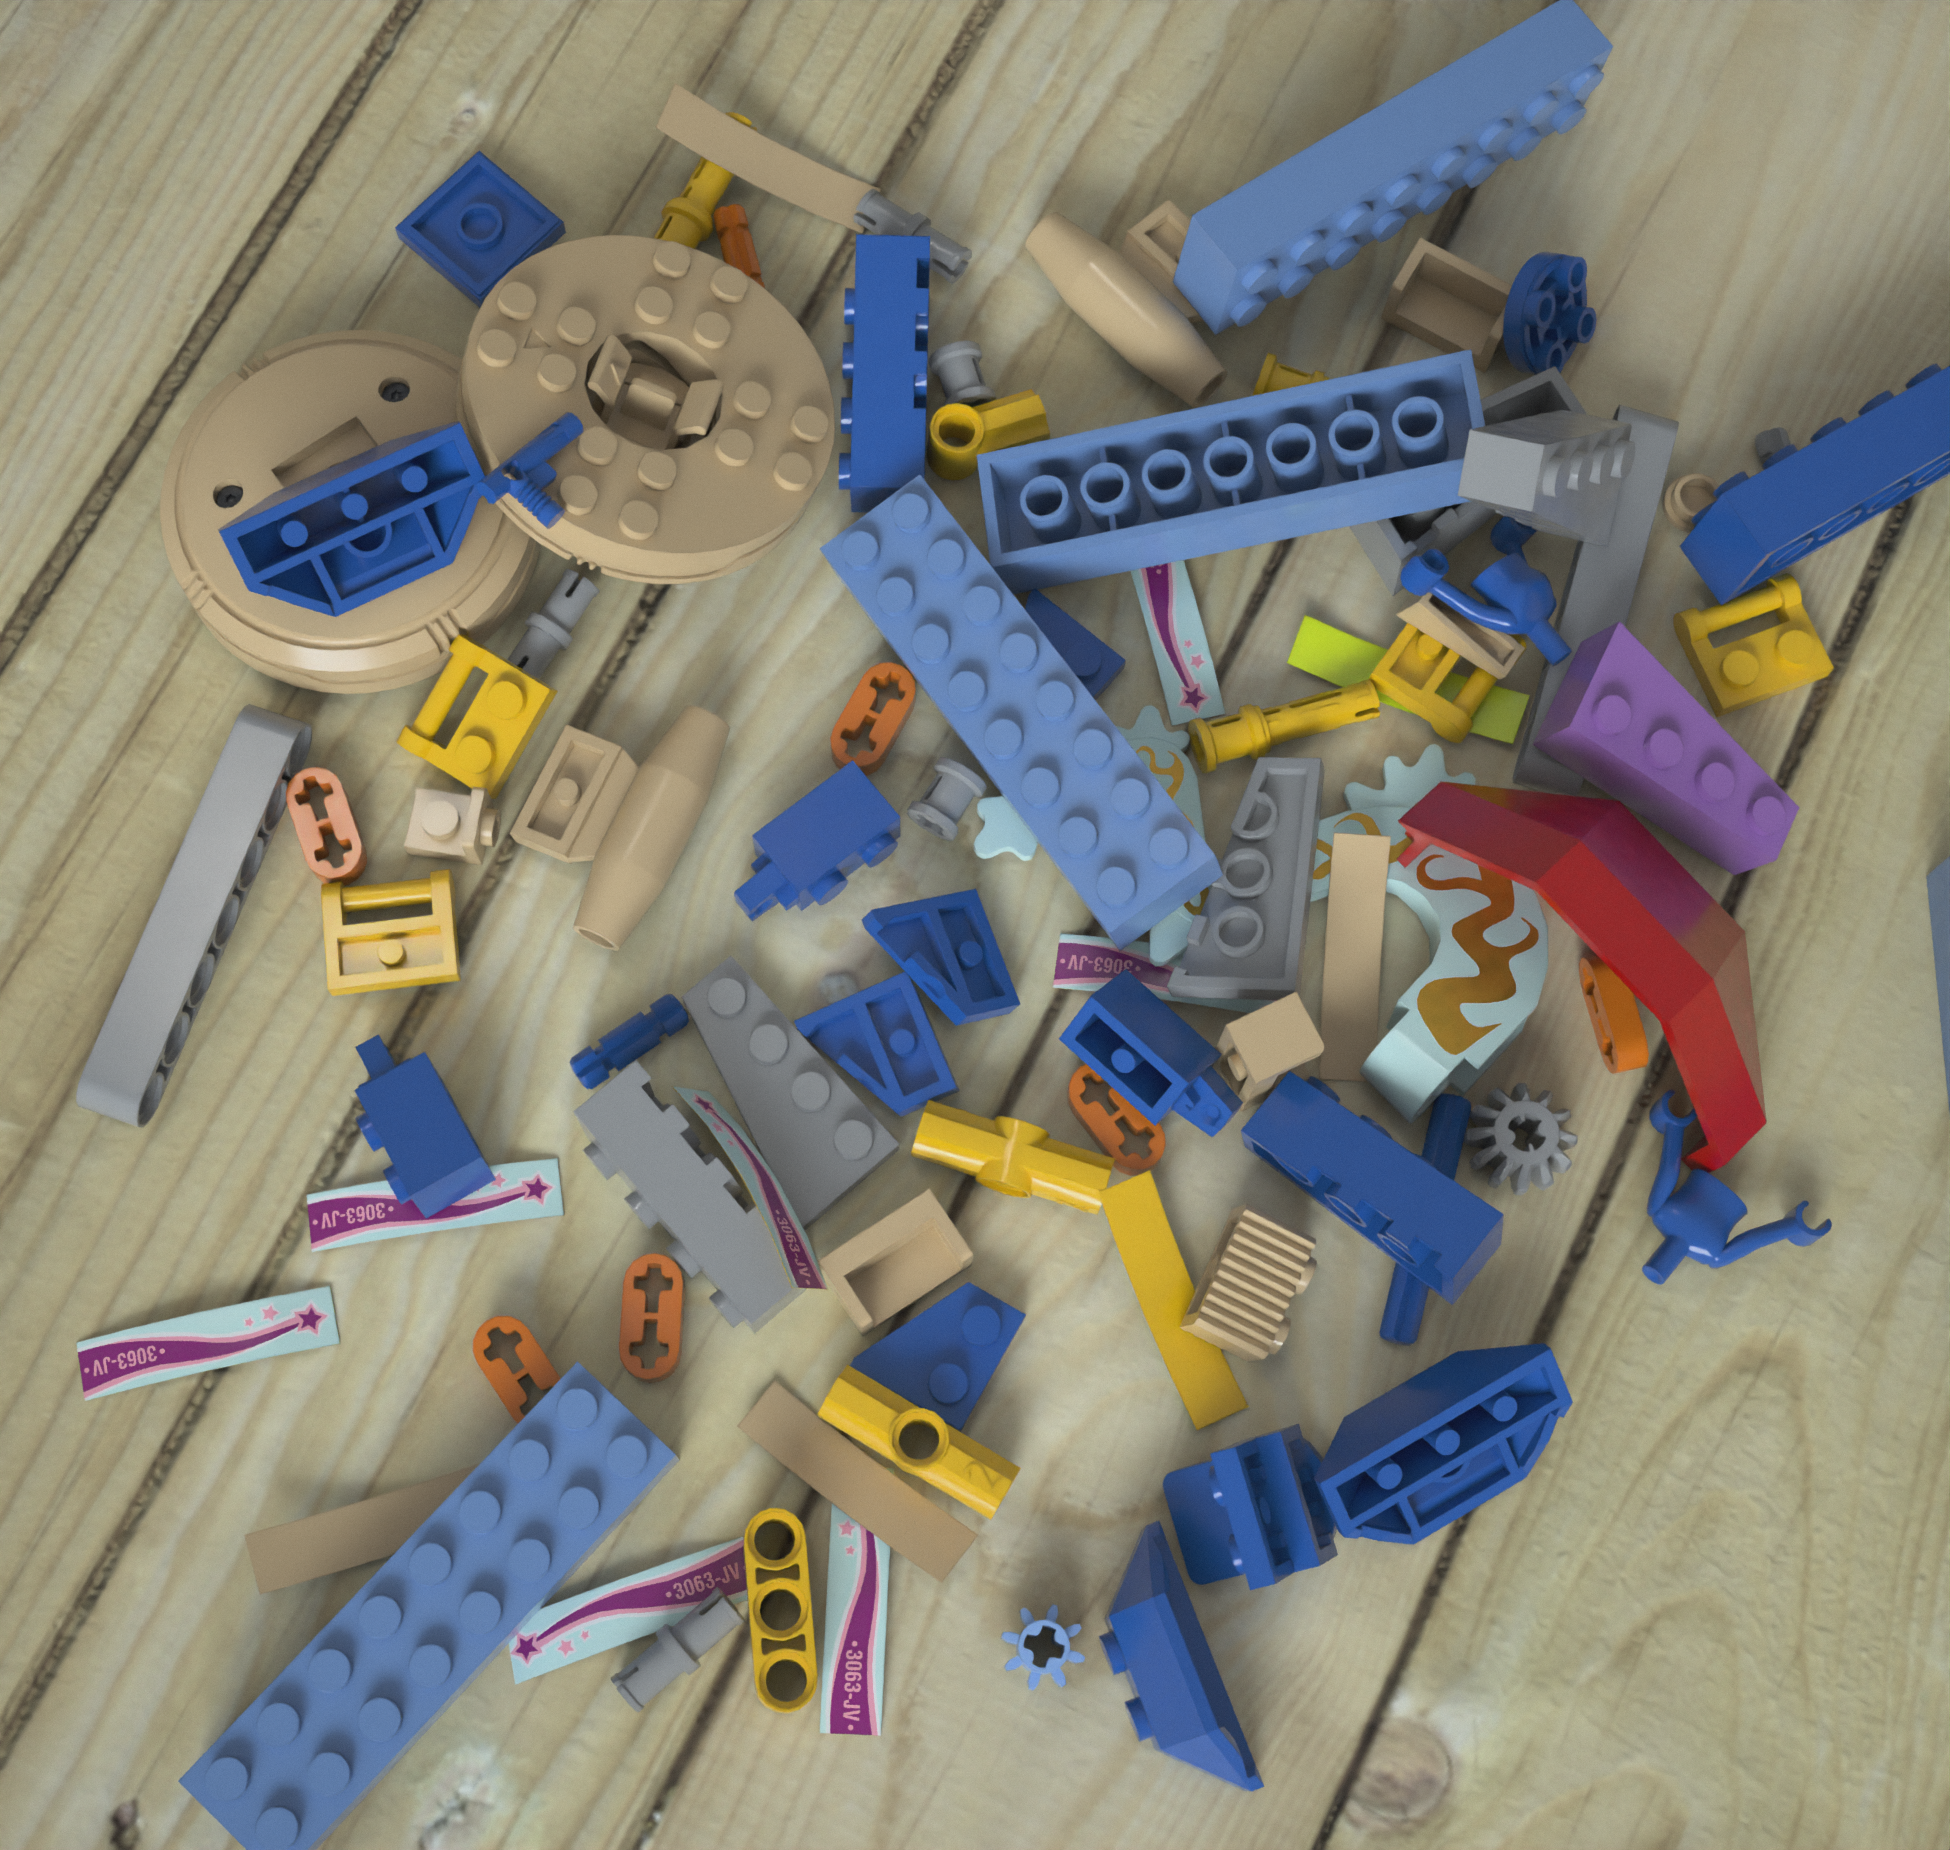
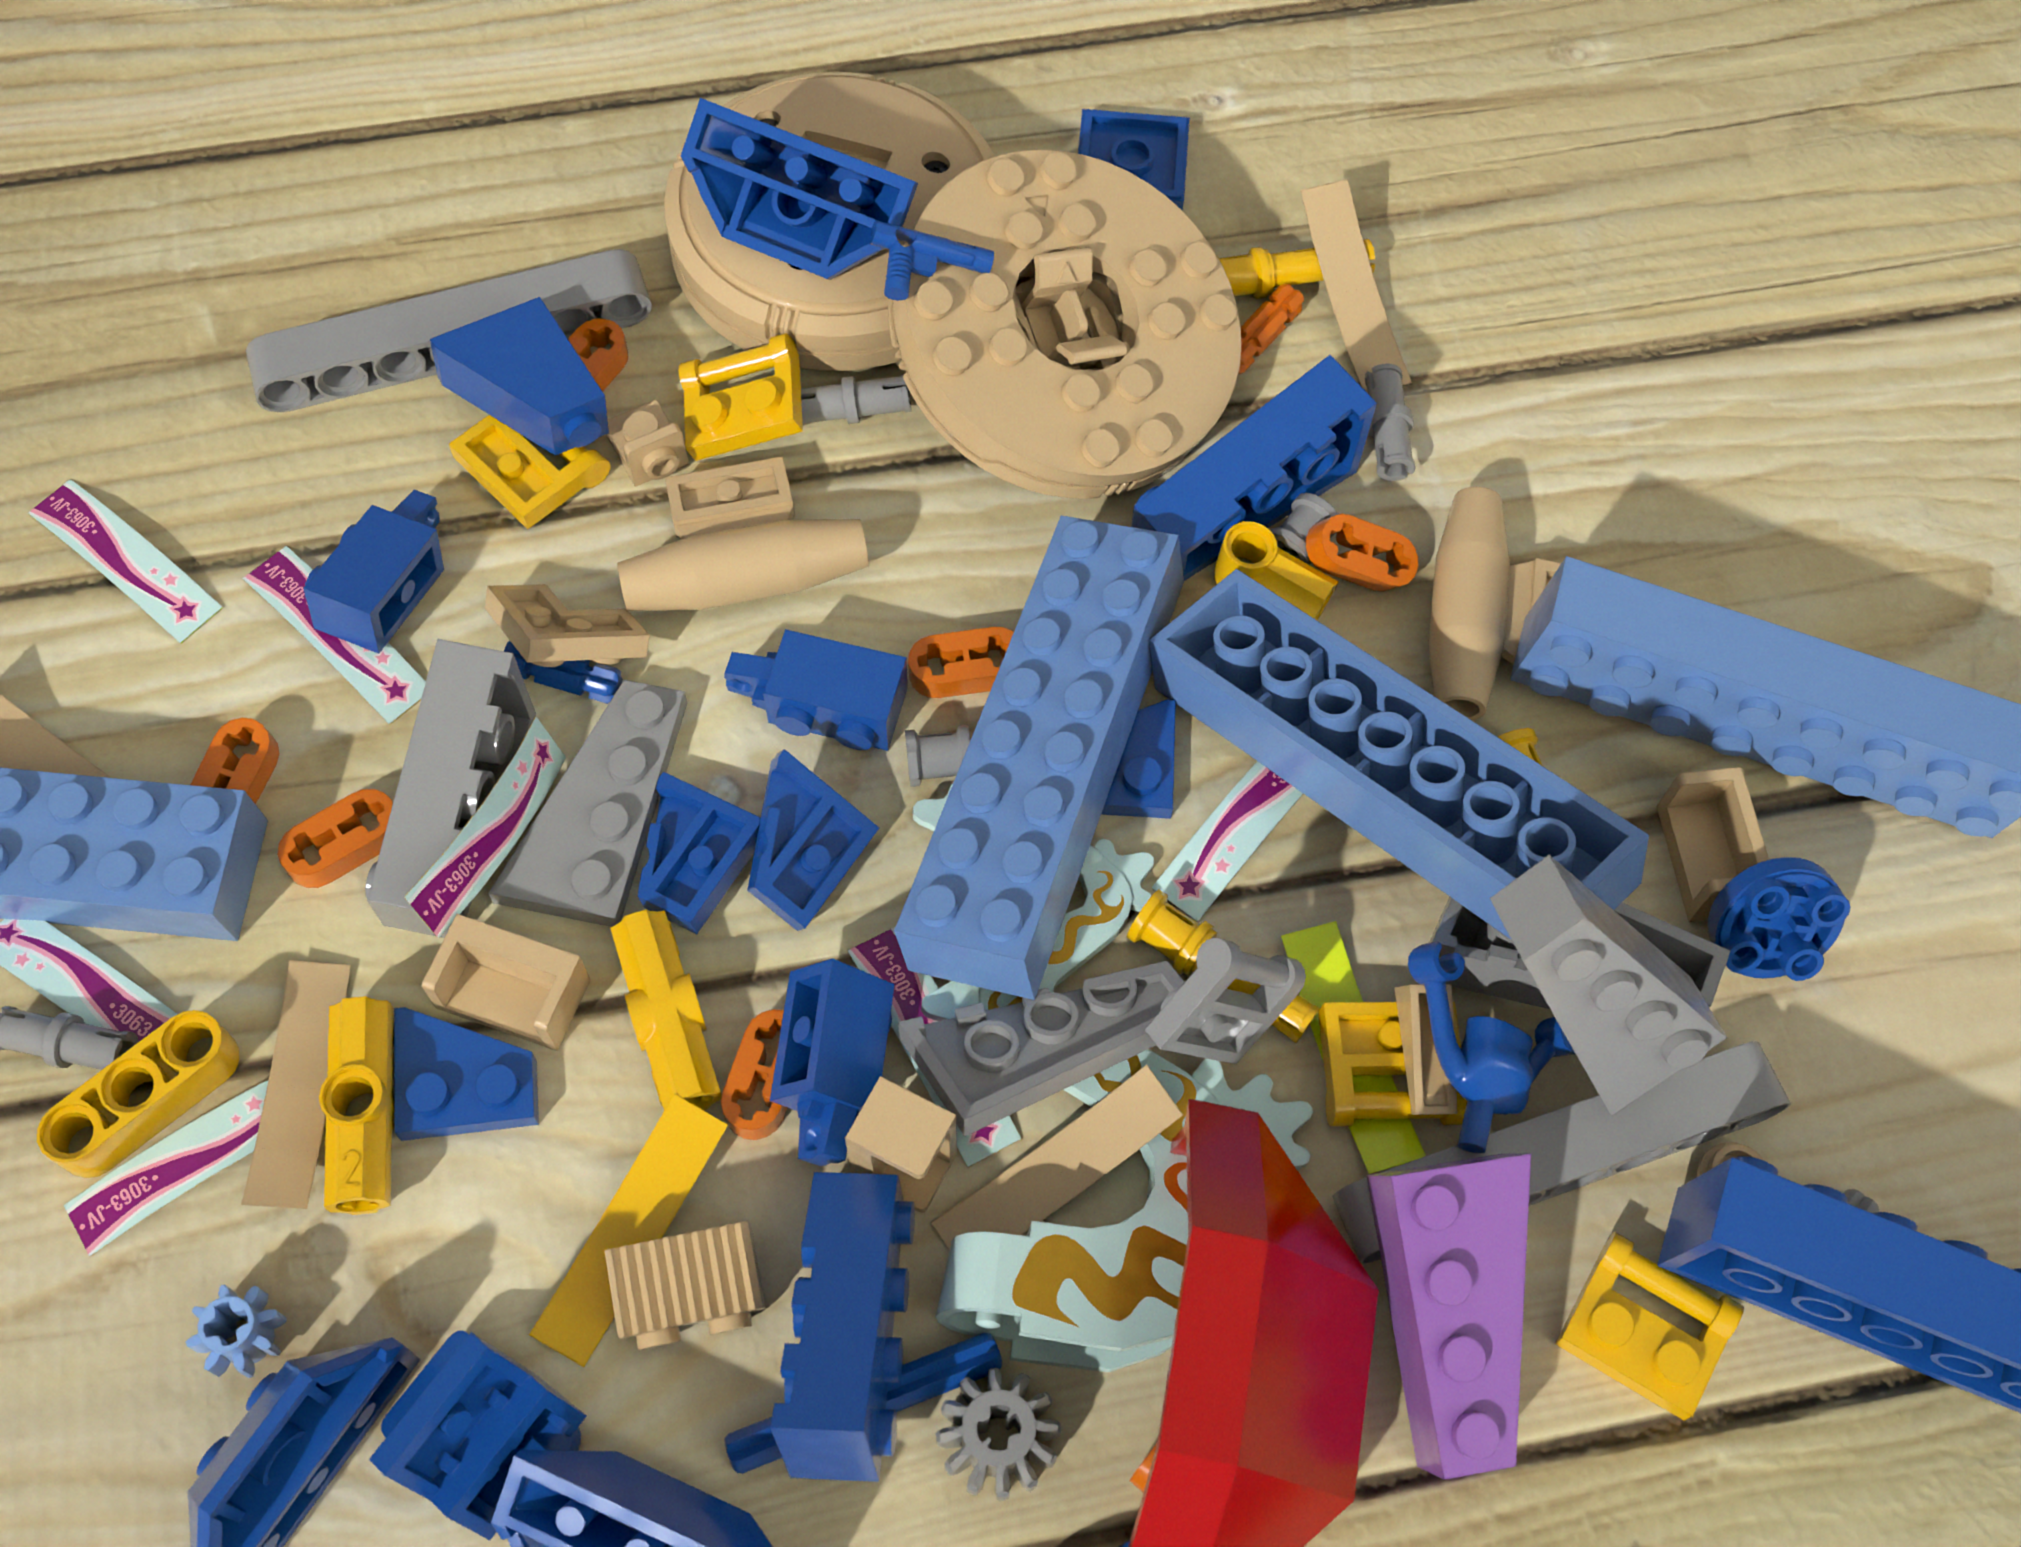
camera: 55 degrees right, 10 degrees down
(326, 876) = (524, 376): none -> blue slope
(605, 1021) = (552, 634): none -> tan plate
(1027, 359) = (1365, 541): none -> orange beam
(1336, 725) = (1222, 1023): none -> light grey plate

